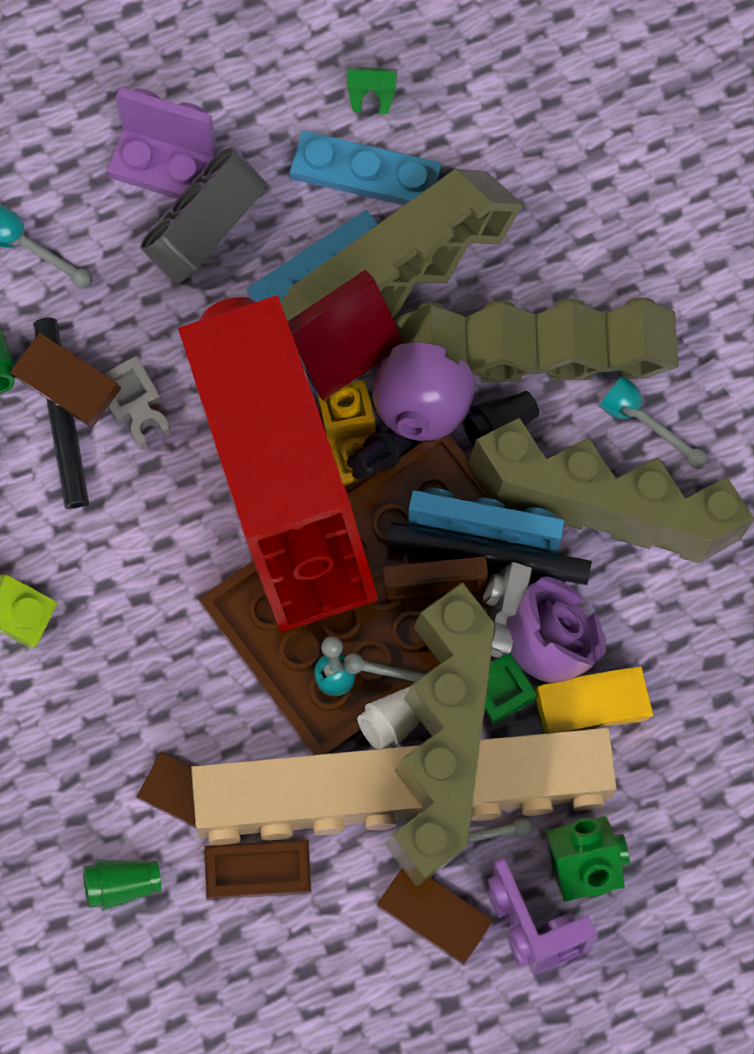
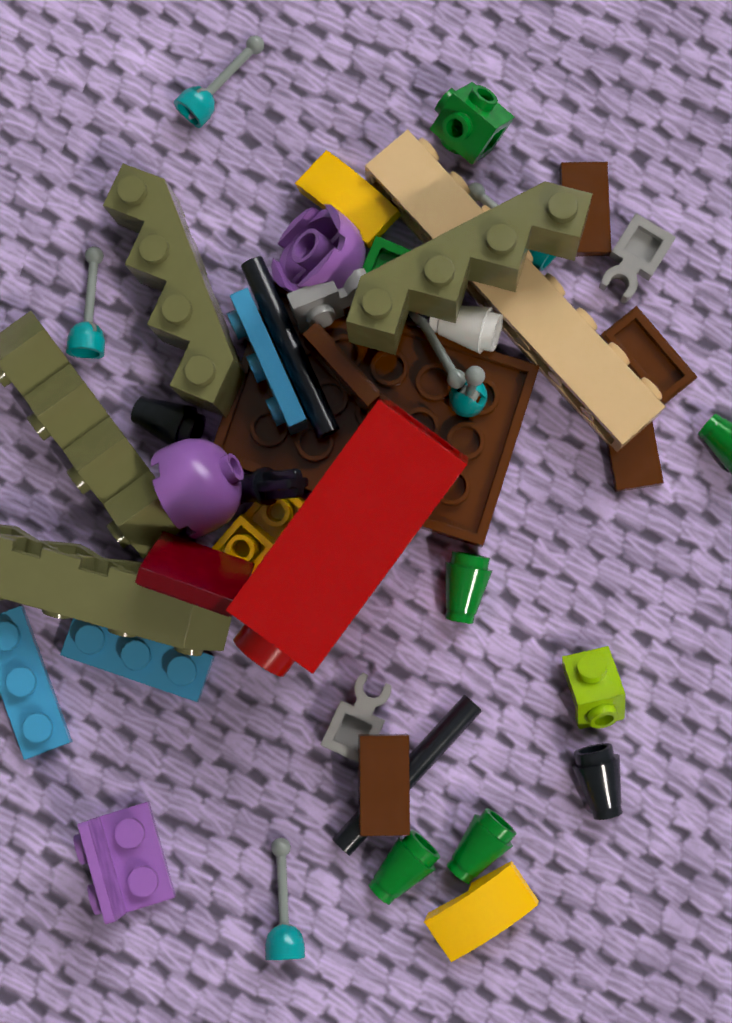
camera: 130 degrees left, 10 degrees up
(178, 565) = (465, 585): none -> green cone
(203, 215) = (160, 782): dark grey beam -> none
(358, 928) = (638, 253): none -> light grey plate
(563, 936) = (556, 95): medium lavender bracket -> none

